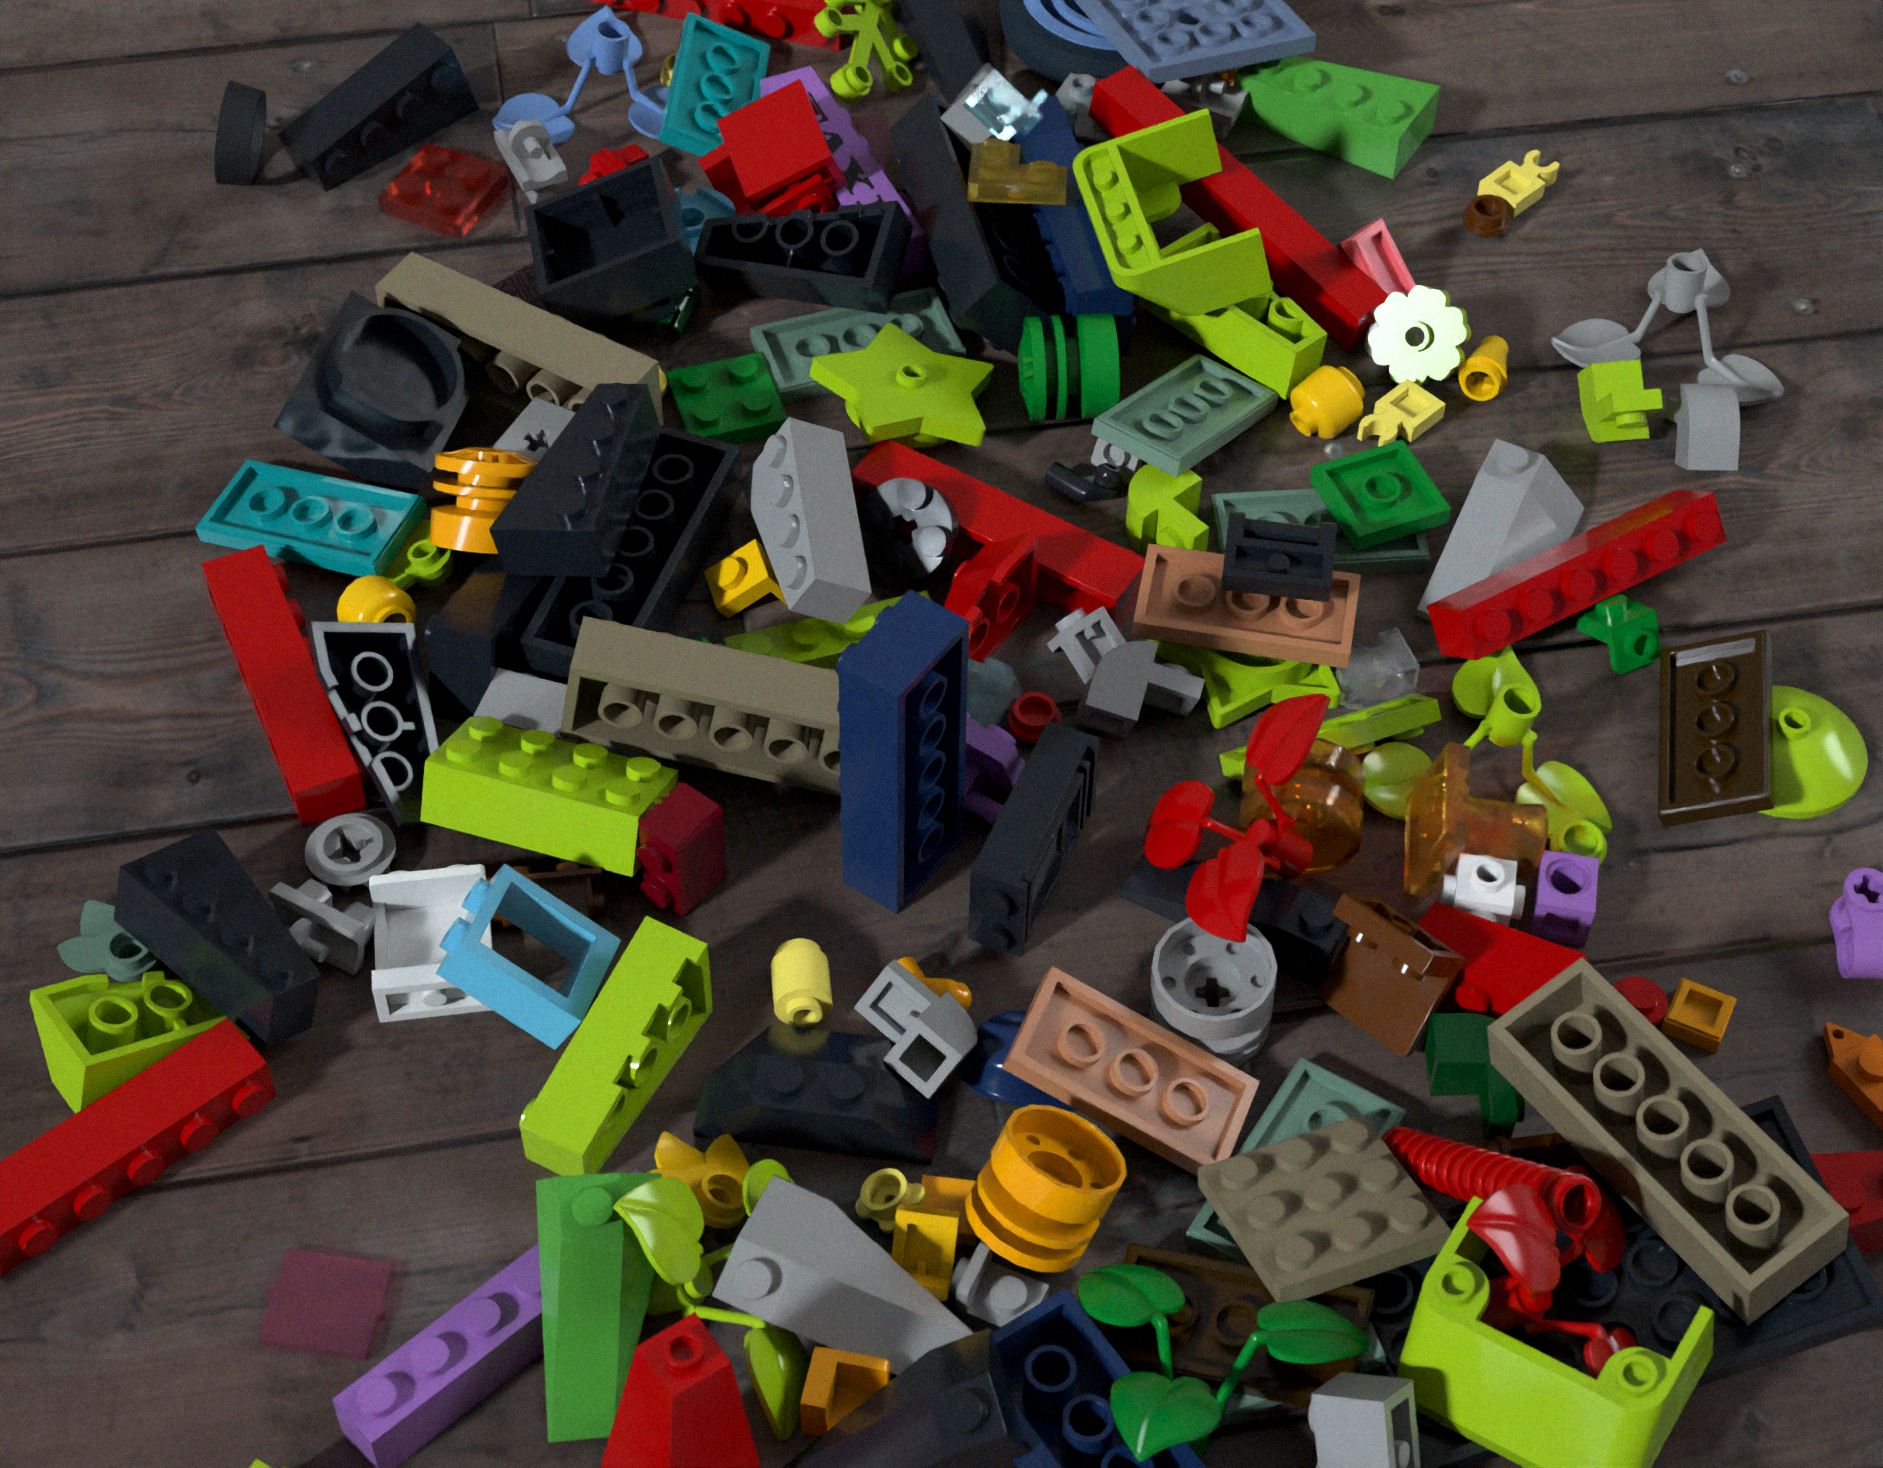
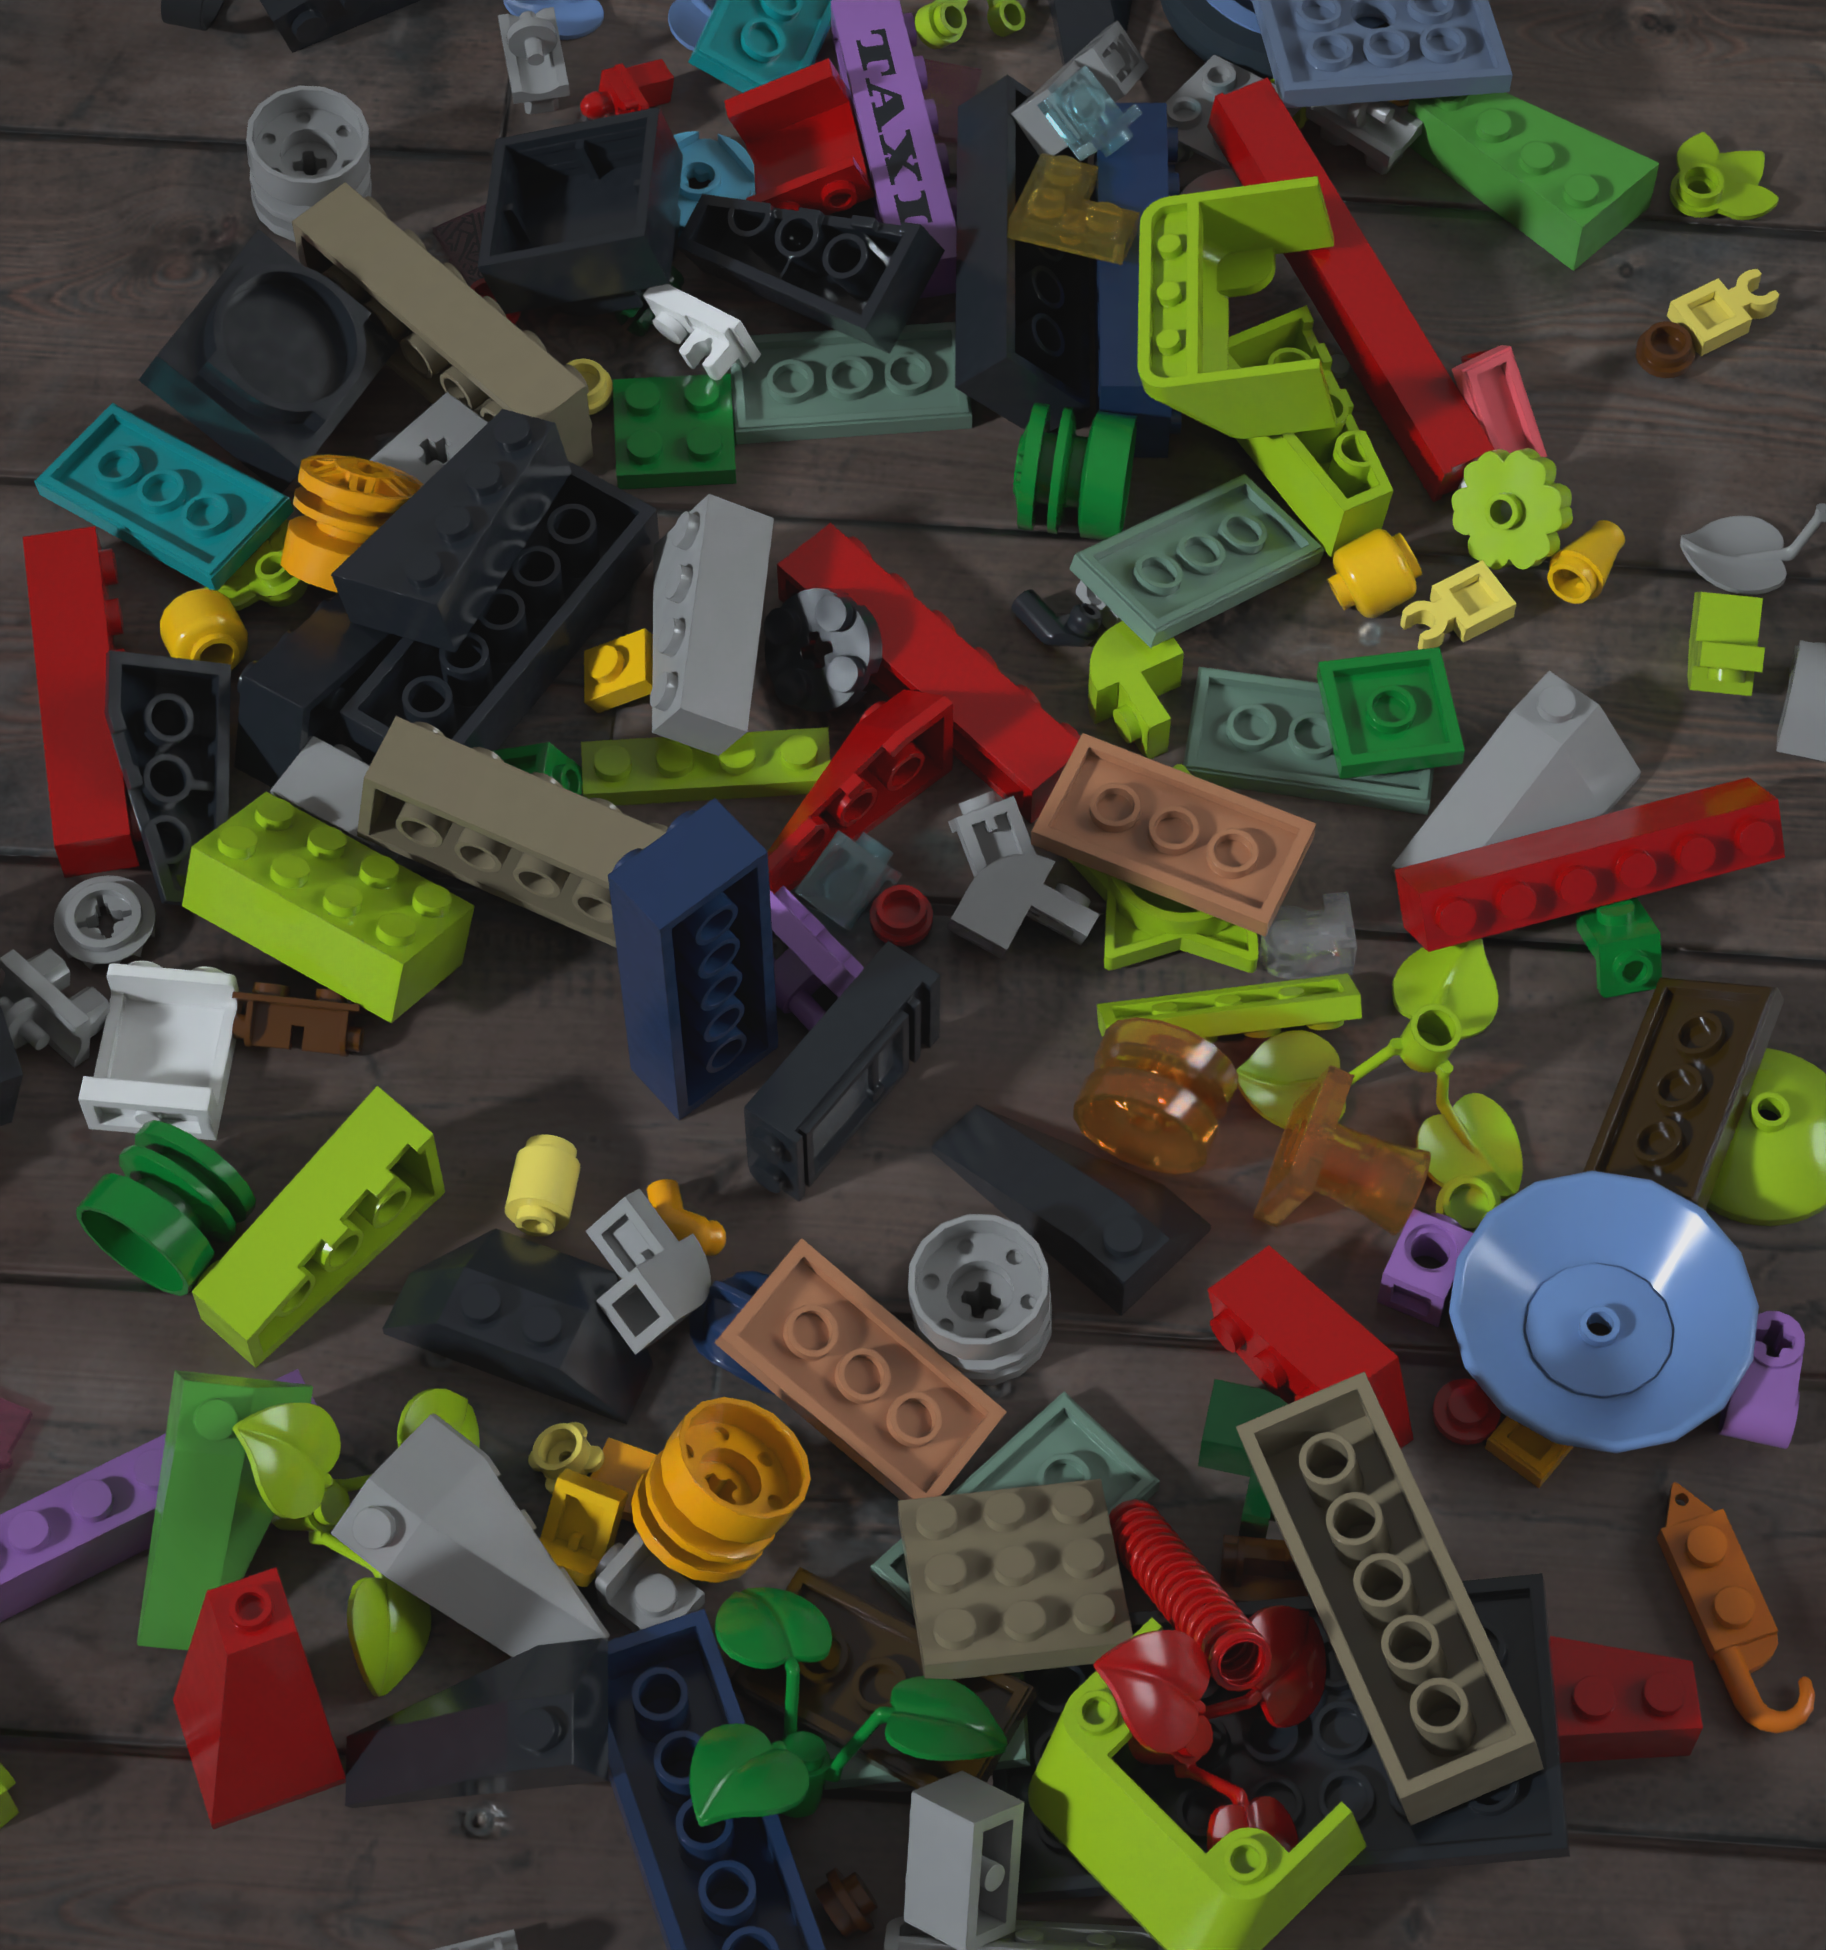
camera: 15 degrees right, 10 degrees up
(363, 241) = (303, 149): none -> light grey wheel
(443, 190) = (425, 78): clear red plate -> none
(477, 1061) = (166, 1207): none -> green wheel
(505, 986) = (192, 1111): medium azure window -> none
(681, 849) = (450, 1004): dark red brick -> none
(712, 1176) = (368, 1383): yellow plate -> none
(729, 319) = (704, 330): none -> white plate
(778, 145) = (818, 106): red panel -> none
(837, 1386) = (444, 1655): light orange panel -> none
(907, 390) = (879, 463): lime plate -> none
(1227, 887) = (1018, 1184): red plant -> none
(1279, 558) = (1216, 798): black plate -> none
(1387, 973) = (1183, 1318): reddish brown bracket -> none
(1480, 102) = (1719, 181): none -> lime plate
(1484, 888) = (1331, 1246): white brick -> none
(1737, 858) = (1616, 1257): none -> medium blue dish

